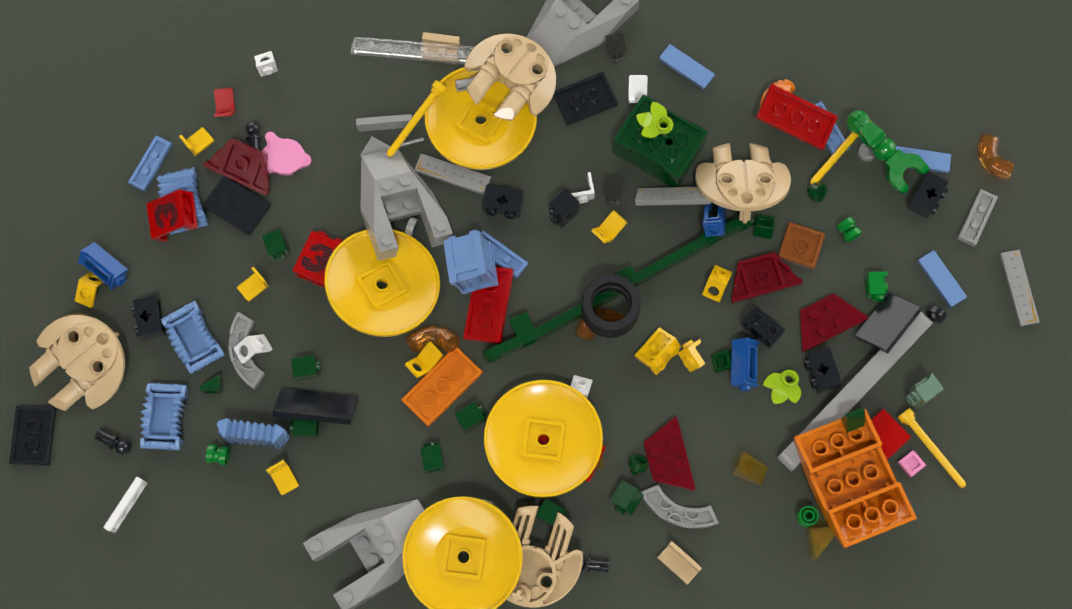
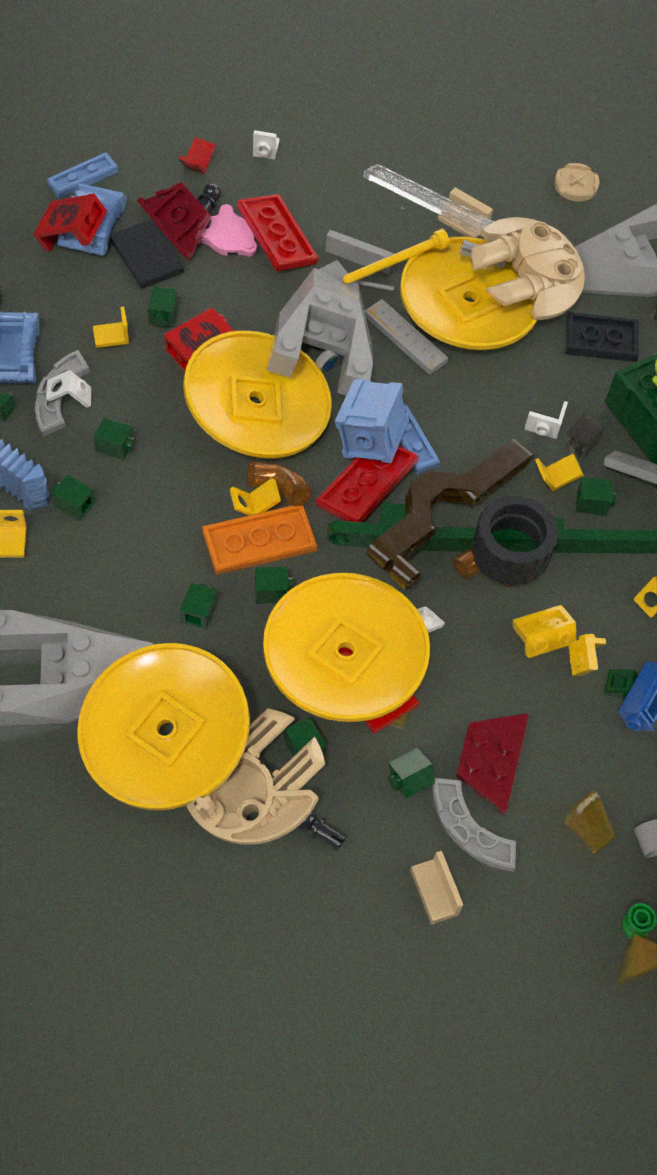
camera: 20 degrees right, 15 degrees down
(198, 141) = (145, 178): yellow bracket -> none
(315, 406) = (98, 480): black tile -> none
(317, 136) = (277, 232): none -> red tile
(495, 195) = (447, 386): black brick -> none
(535, 358) = (430, 488): none -> dark brown beam
(563, 208) = (515, 420): black brick -> none
(637, 464) = (448, 743): dark green tile -> none
(642, 233) = (595, 496): none -> dark green brick

